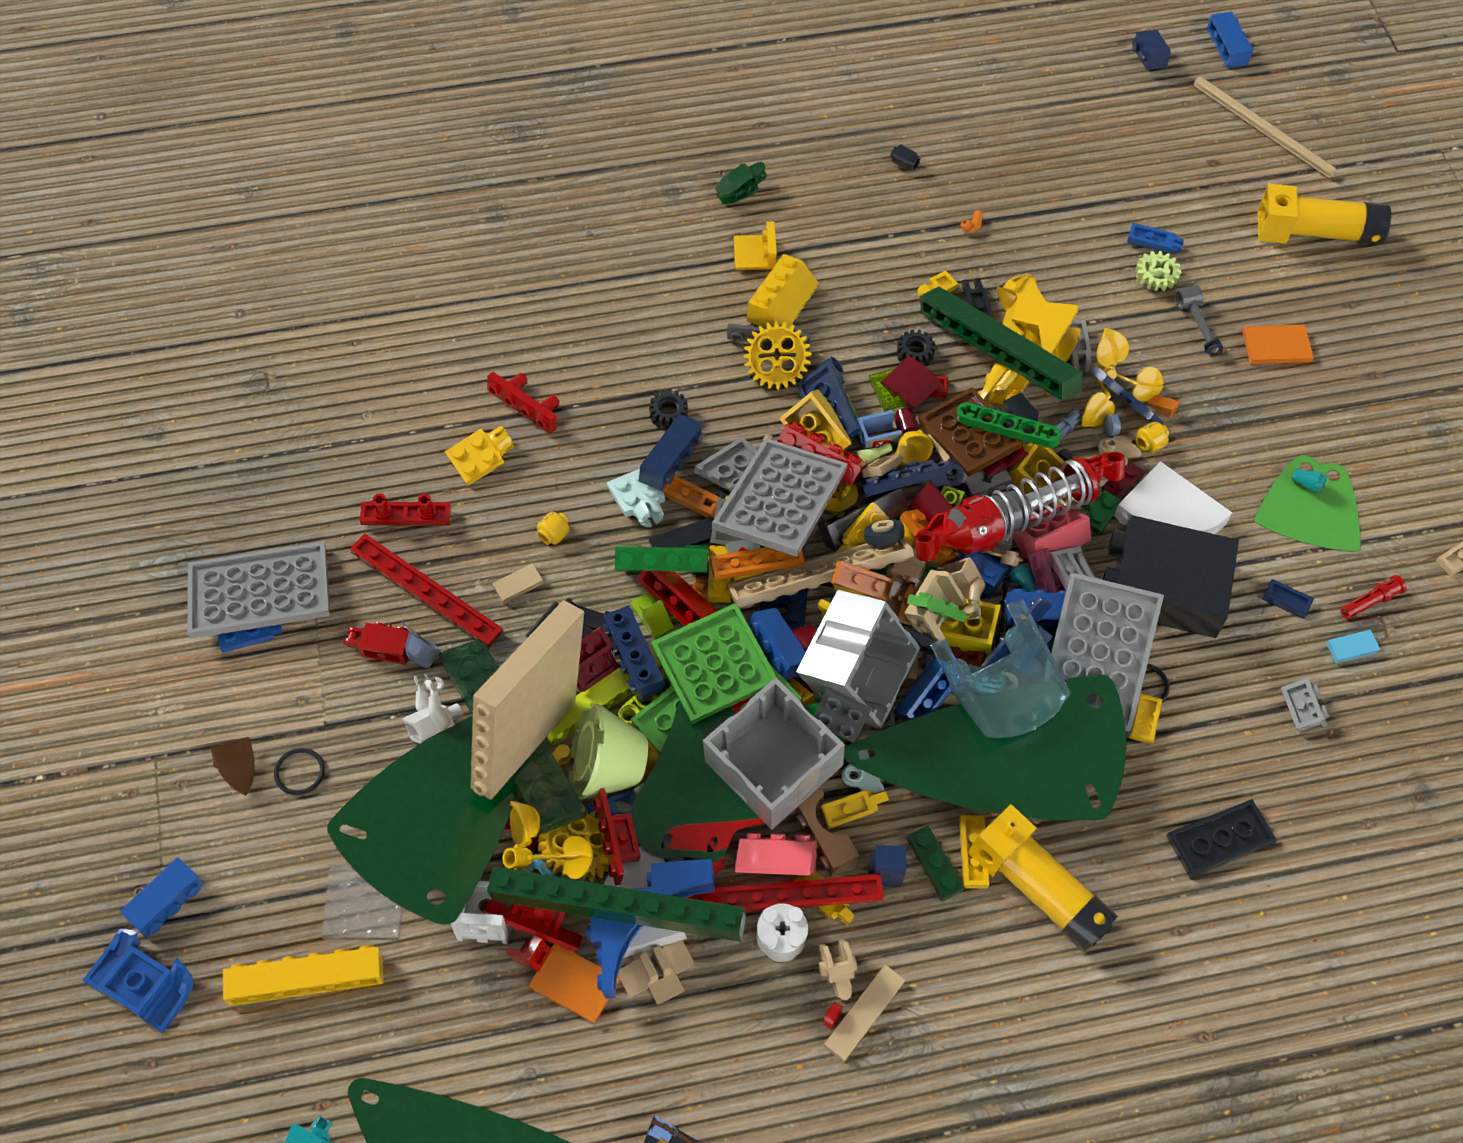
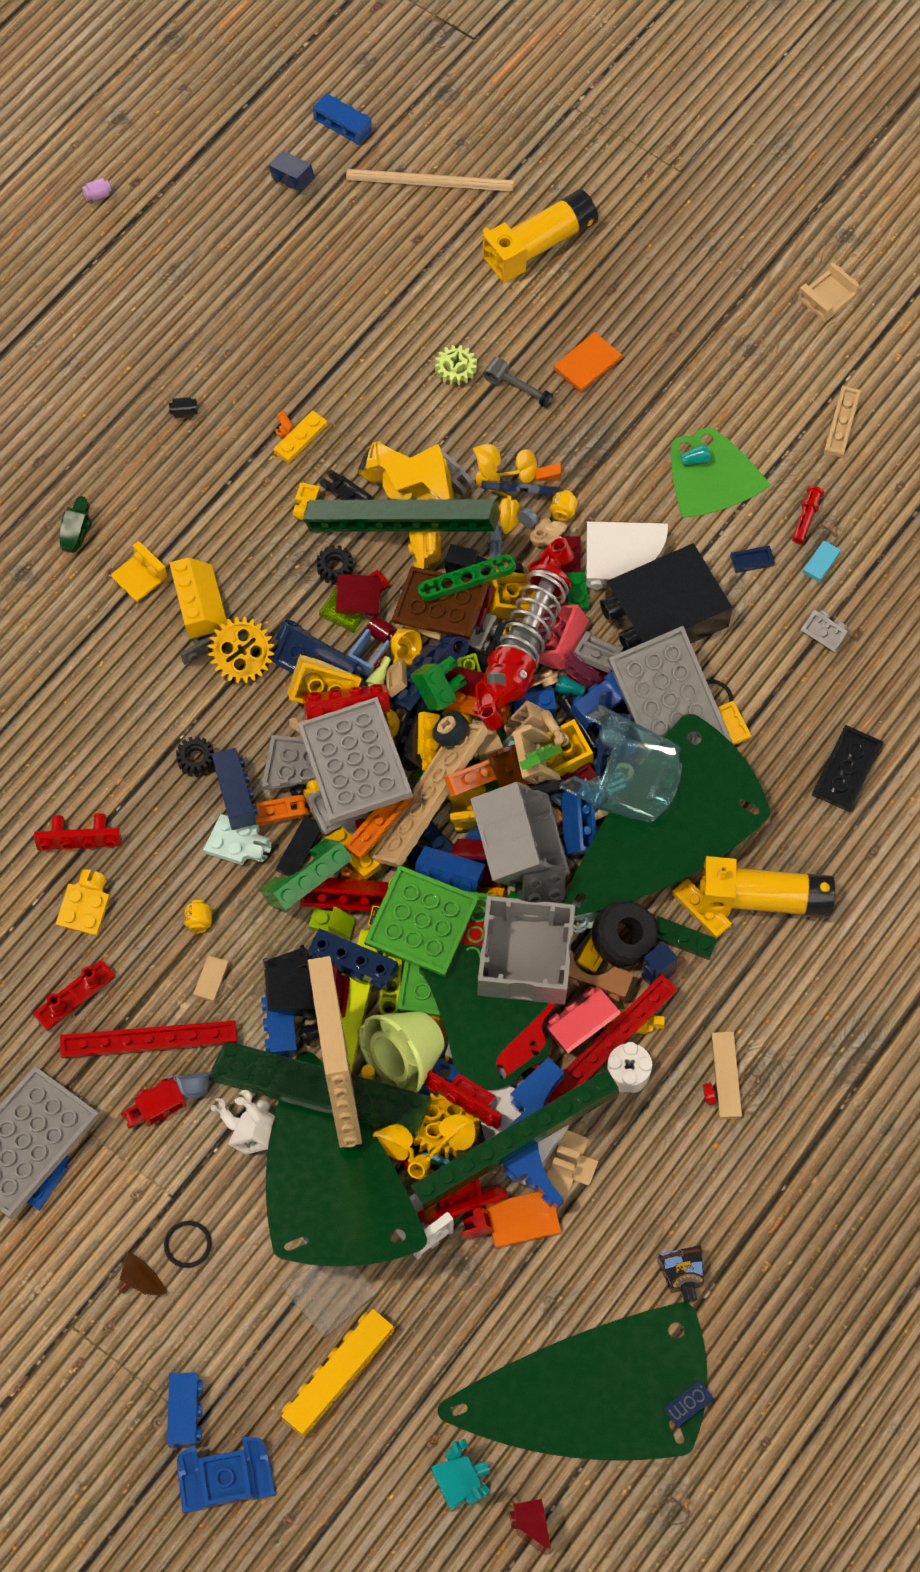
camera: 40 degrees left, 5 degrees up
(838, 969) = (686, 1060): tan hinge -> none
(901, 489) = (434, 686): none -> green brick
(904, 810) = (608, 942): none -> black tyre
(978, 240) = (300, 436): none -> yellow plate
(1155, 238) = (430, 339): blue hinge -> none

